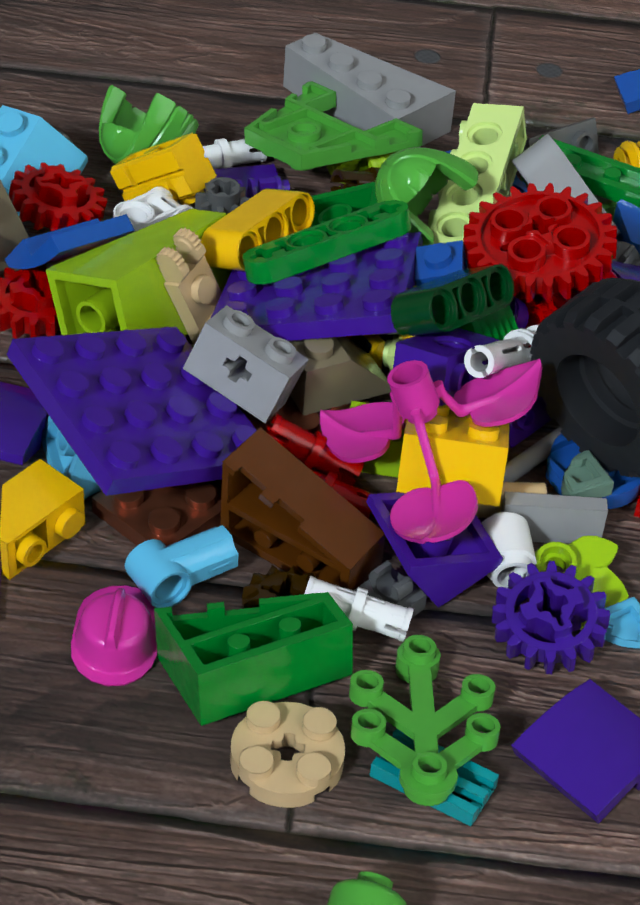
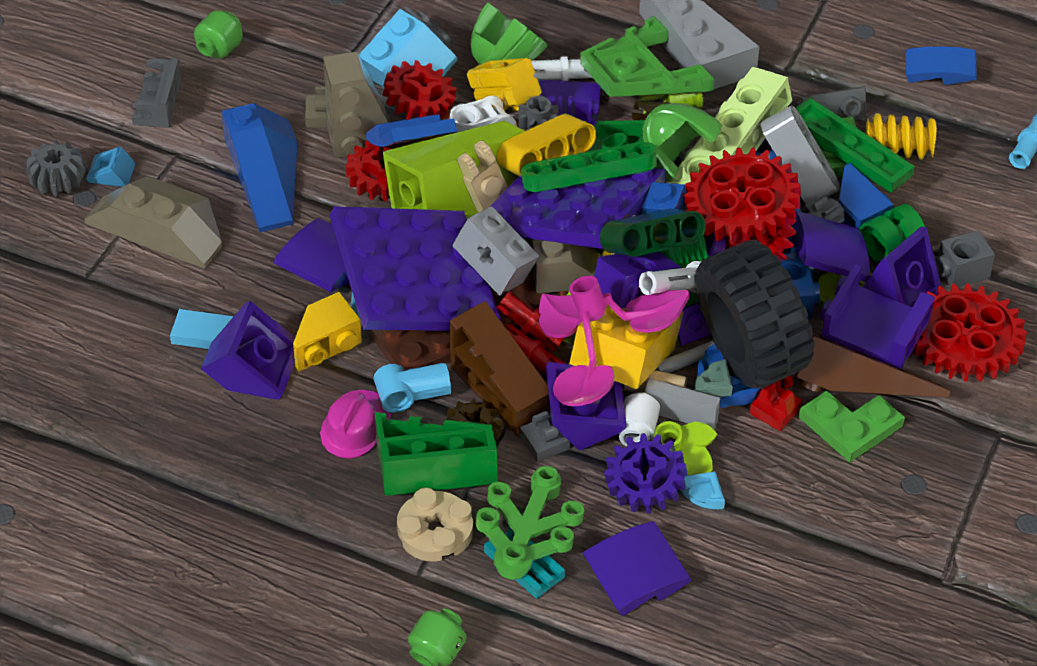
camera: 20 degrees right, 5 degrees up
(366, 610) = (516, 441): white pin -> none

